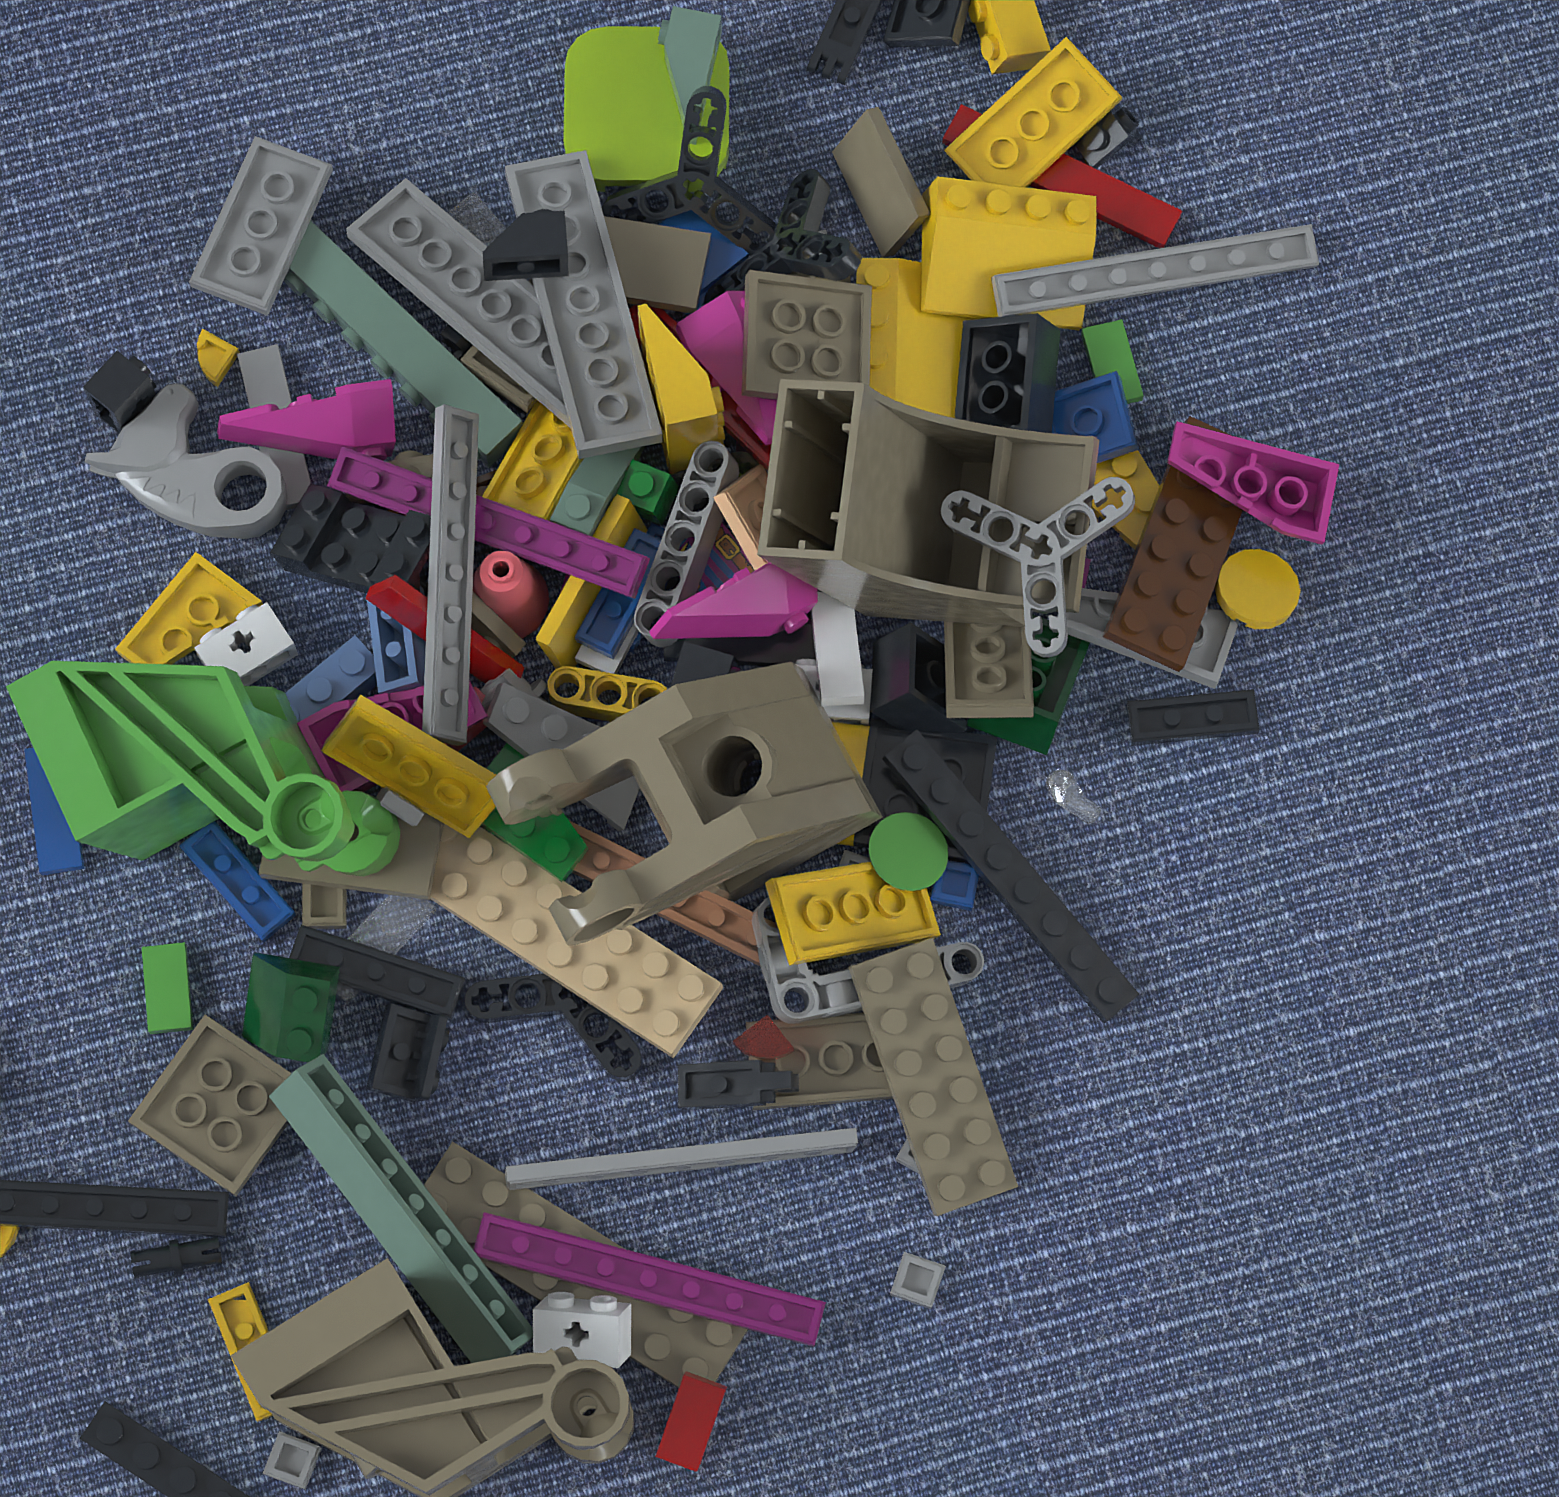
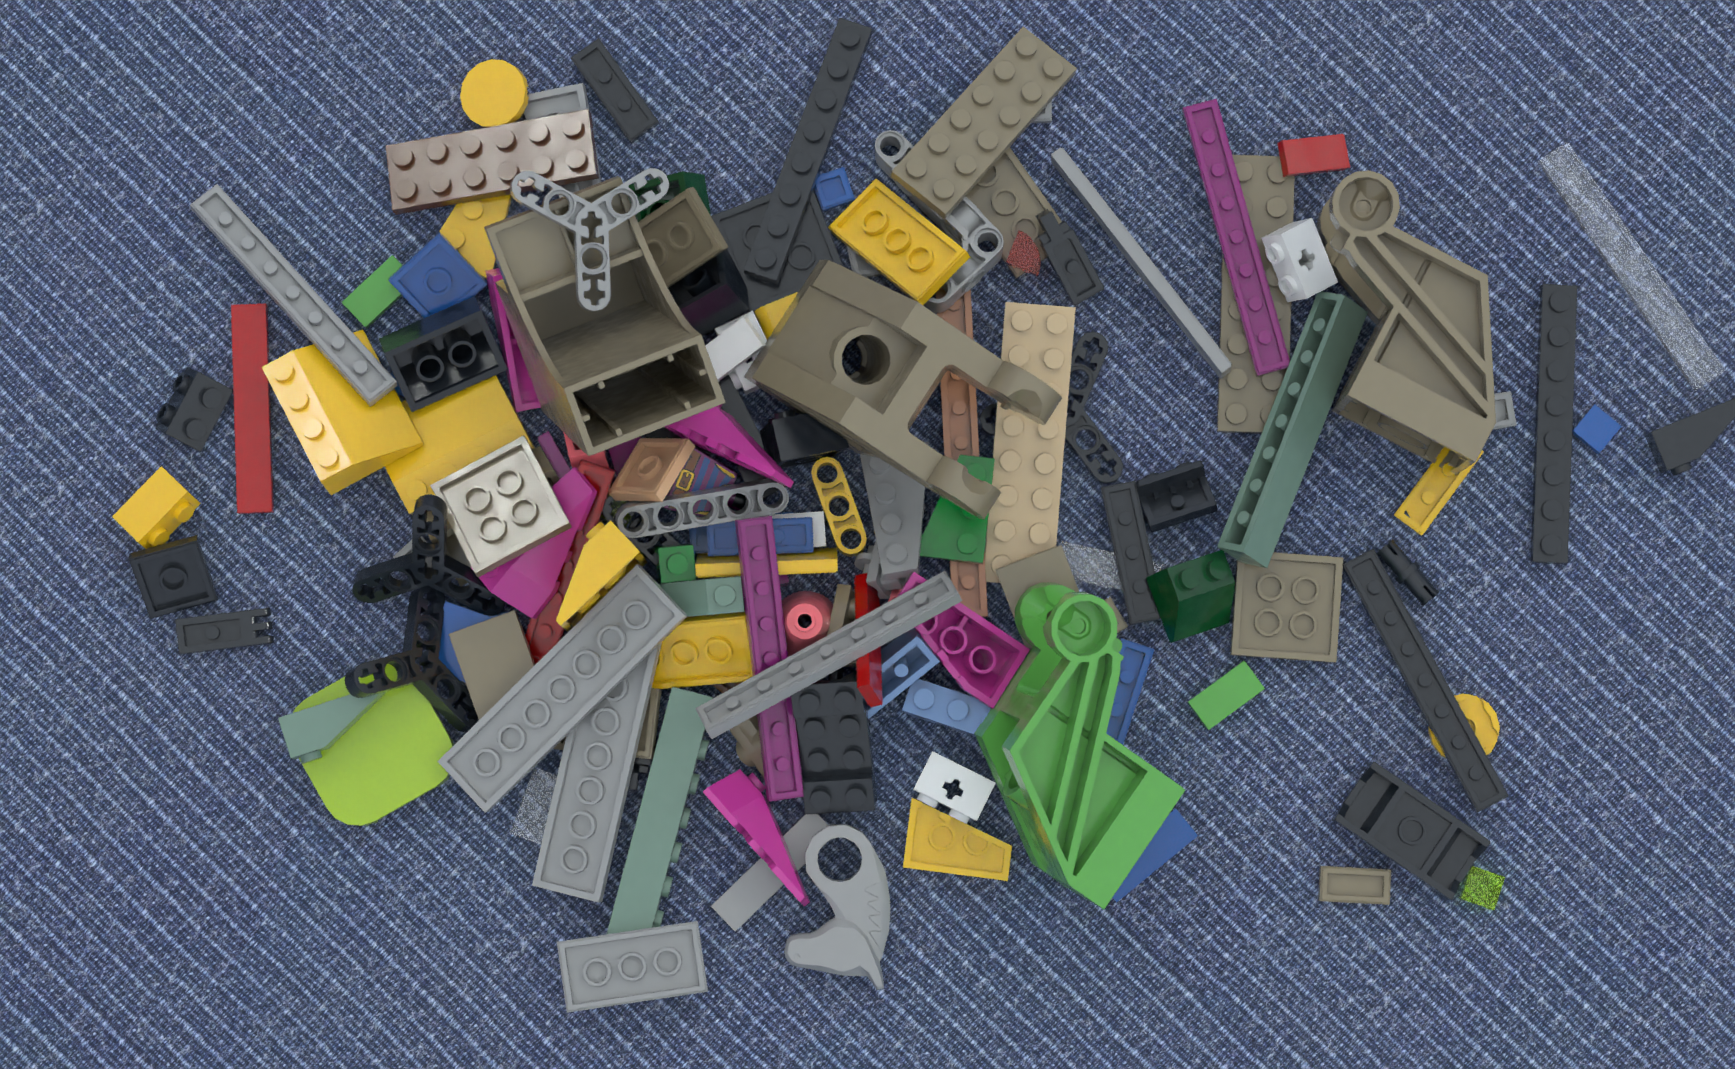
camera: 120 degrees left, 10 degrees up
(120, 390) = (817, 990): black brick -> none
(215, 356) = (745, 948): yellow tile -> none
(400, 806) = (1011, 597): light grey tile -> none
(412, 765) = (982, 598): yellow tile -> none
(529, 248) = (544, 745): black slope -> none
(880, 182) = (337, 532): dark tan tile -> none
(908, 851) = (832, 229): bright green sticker -> none
(917, 1280) = (1126, 60): light grey tile -> none
(1035, 120) = (227, 446): yellow tile -> none
(1070, 797) = (724, 143): clear arm -> none
(1269, 483) = (418, 123): dark pink wedge -> none

